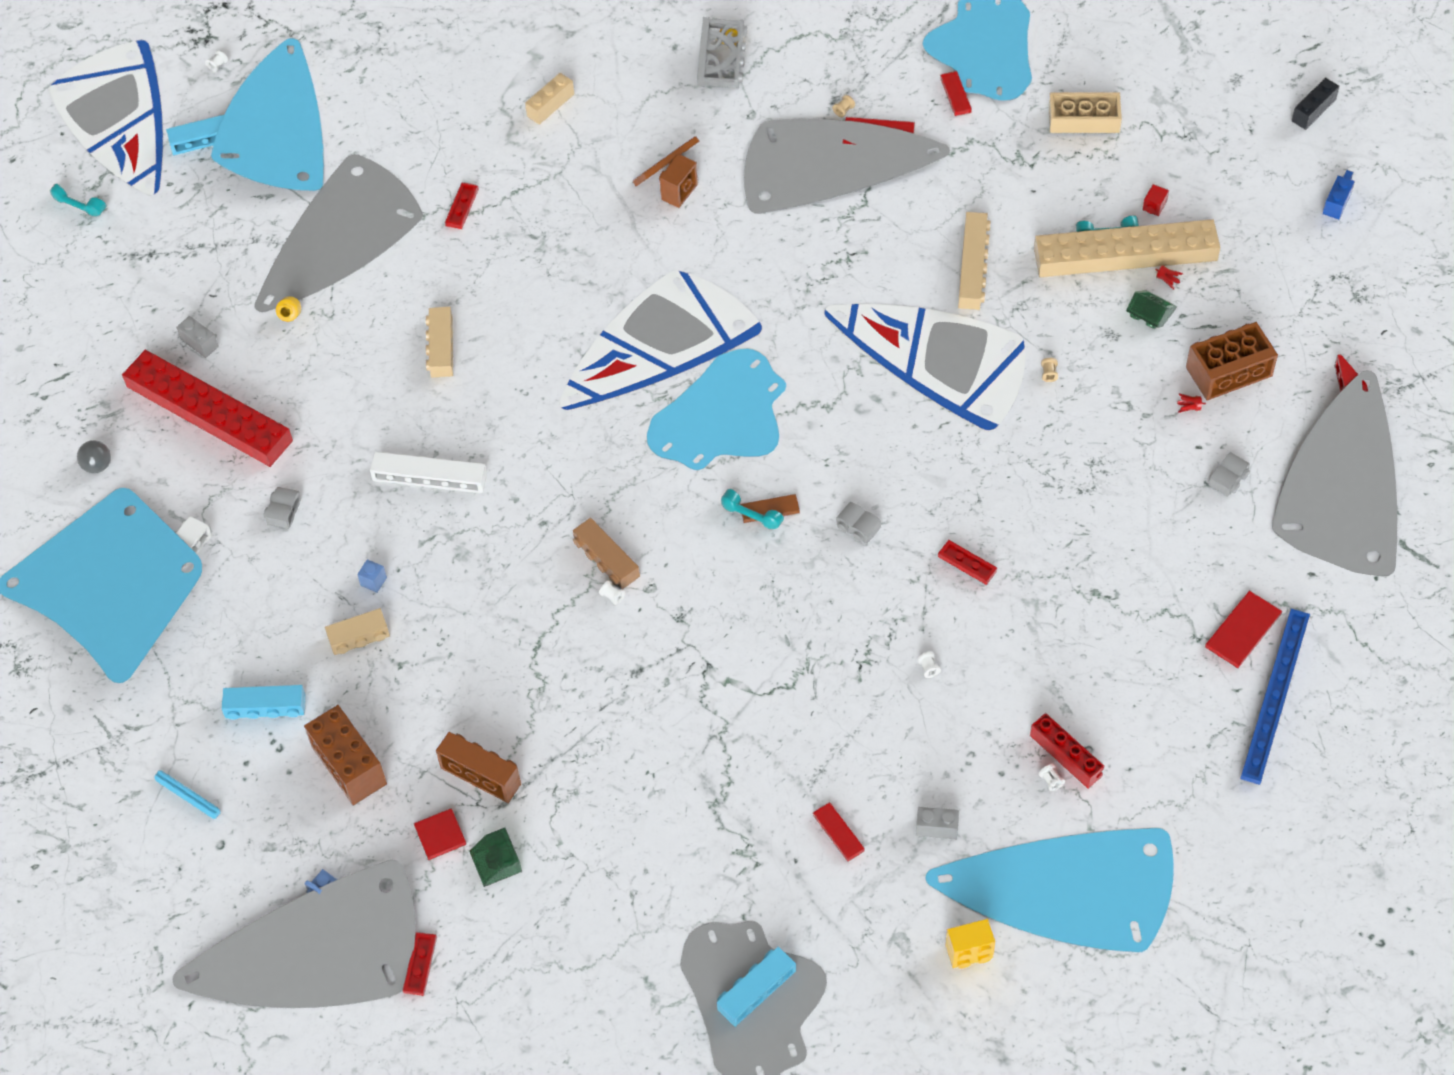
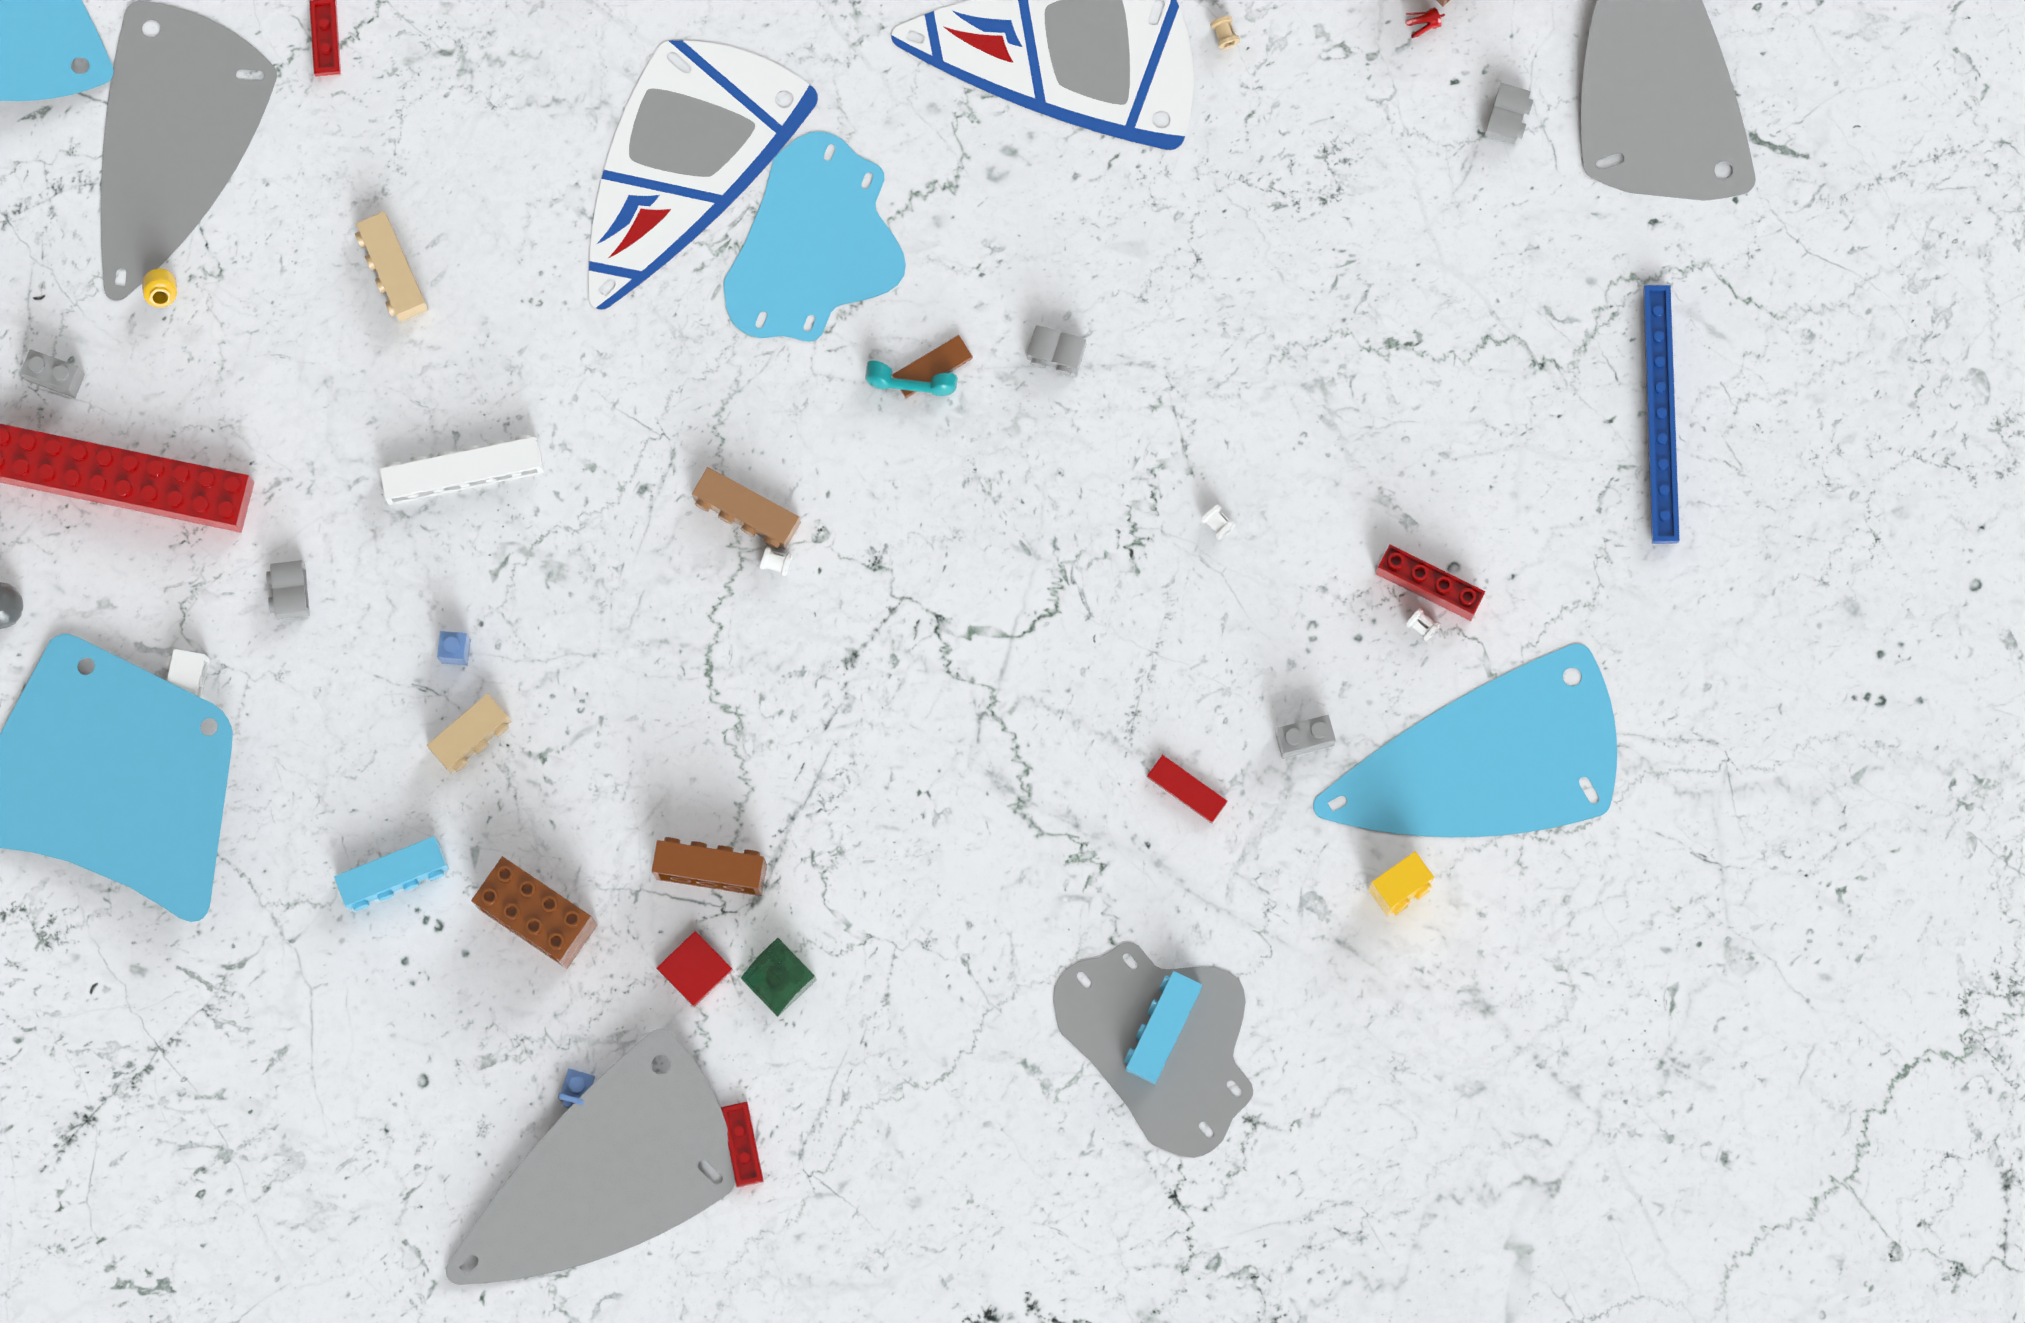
camera: 20 degrees left, 20 degrees up
(187, 794) = (350, 1031): medium azure axle -> none
(967, 562) = (1216, 358): red plate -> none
(1243, 629) = (1593, 332): red tile -> none

